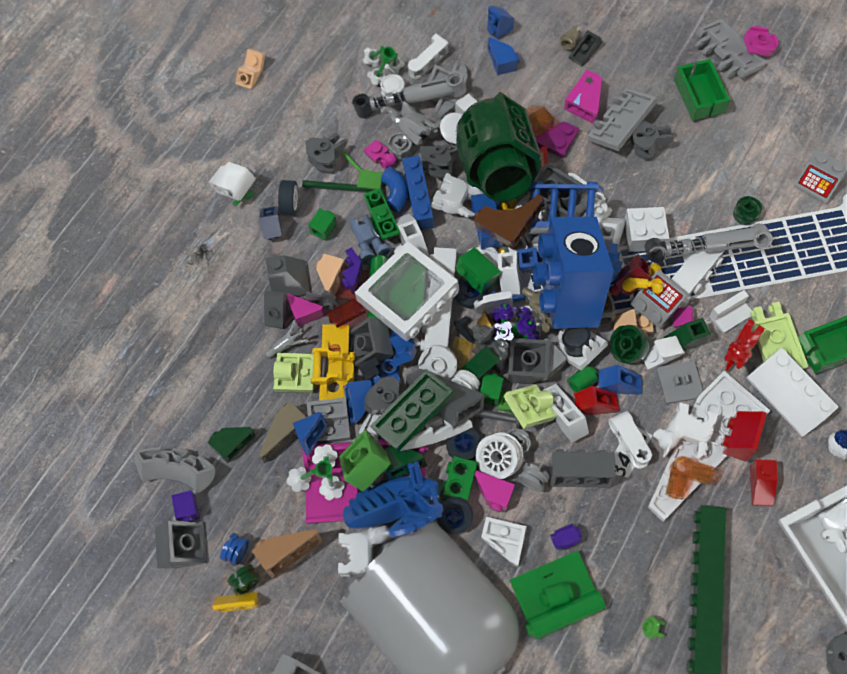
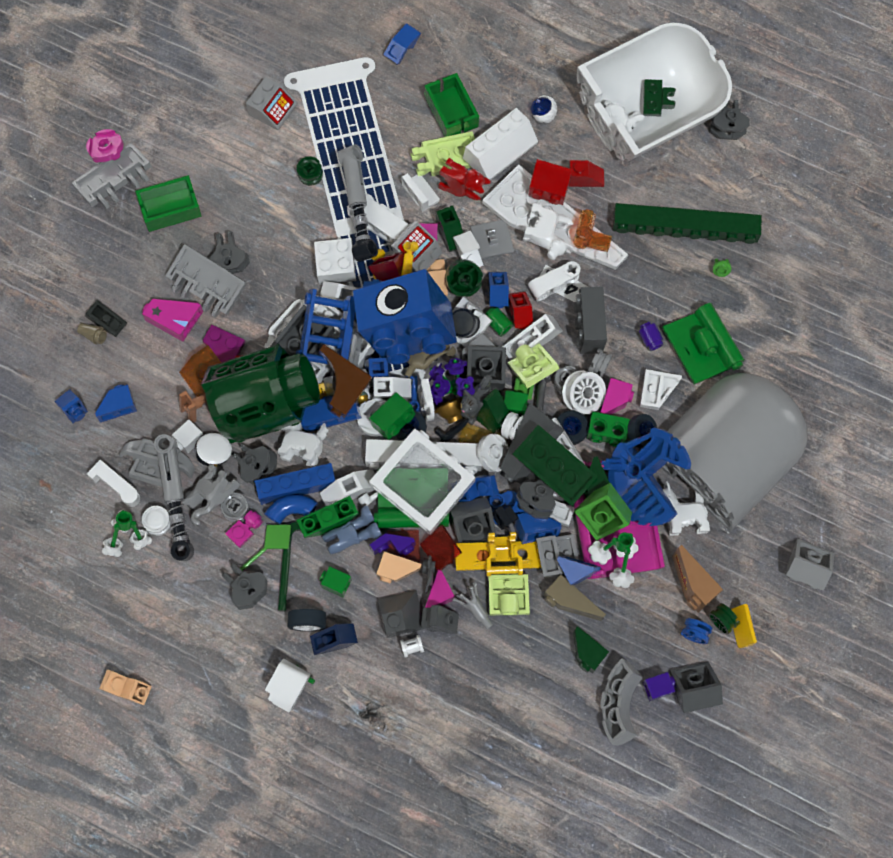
camera: 100 degrees left, 5 degrees up
(253, 288) = (411, 646): none -> white bush

